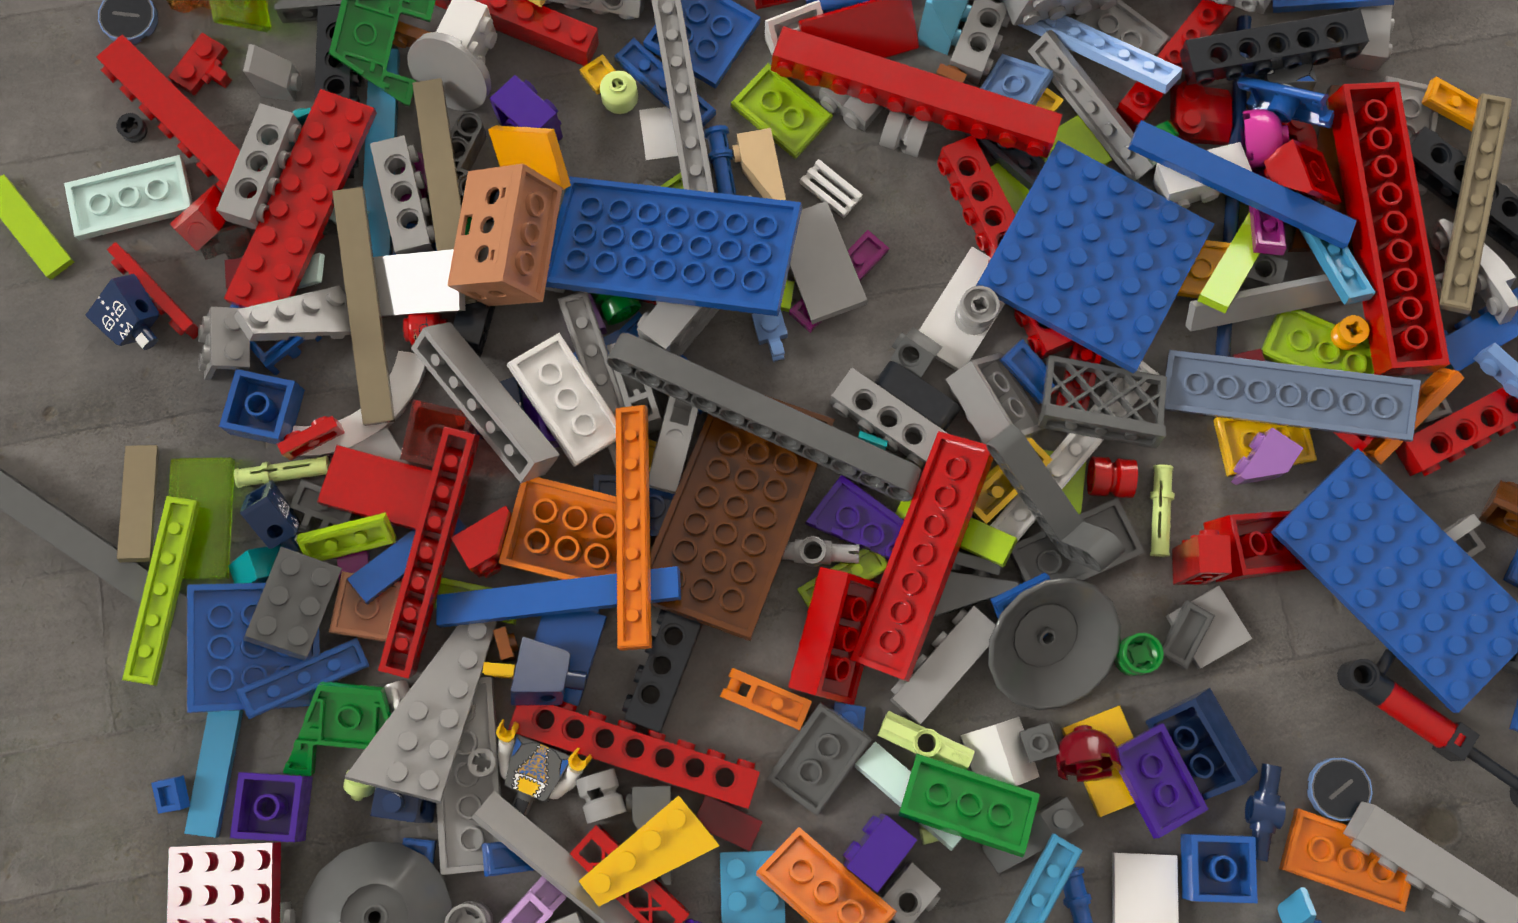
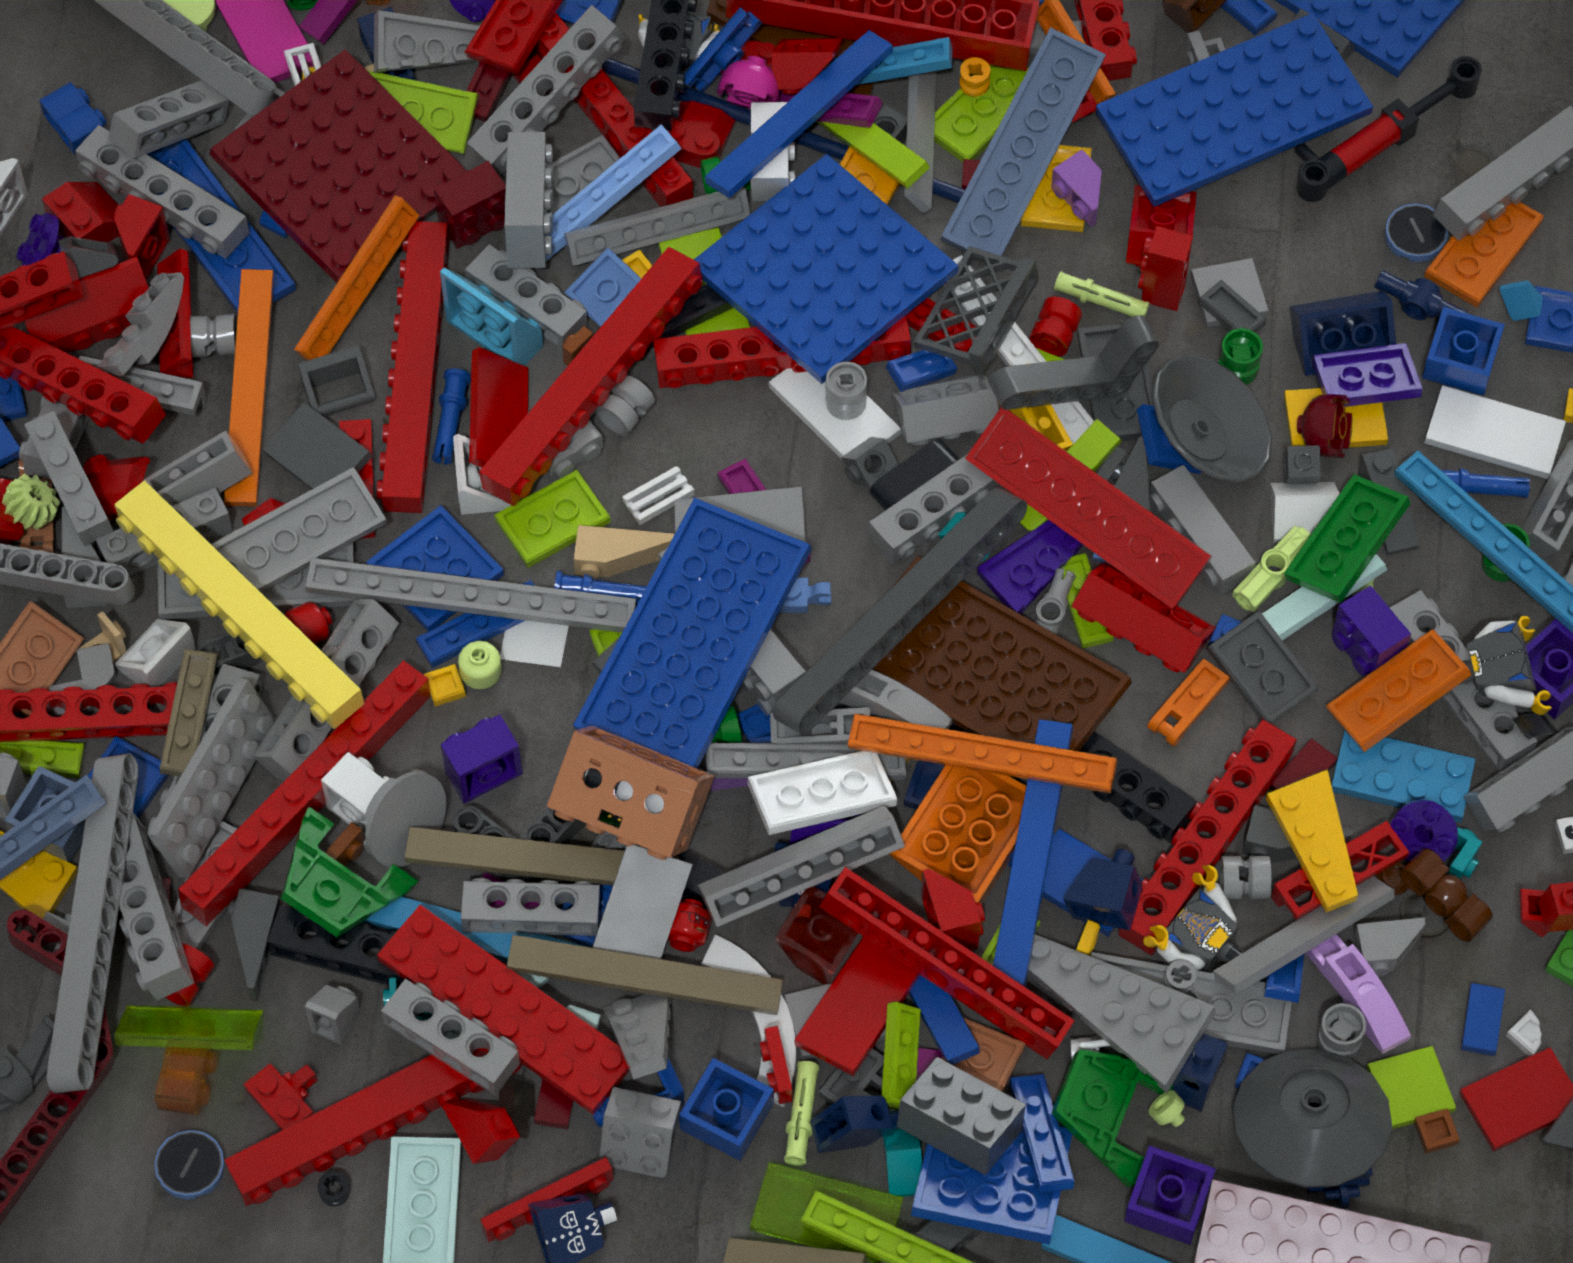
camera: 70 degrees left, 15 degrees down
(506, 644) = (1062, 930): dark orange plate -> none
(533, 147) = (533, 759): light orange tile -> none

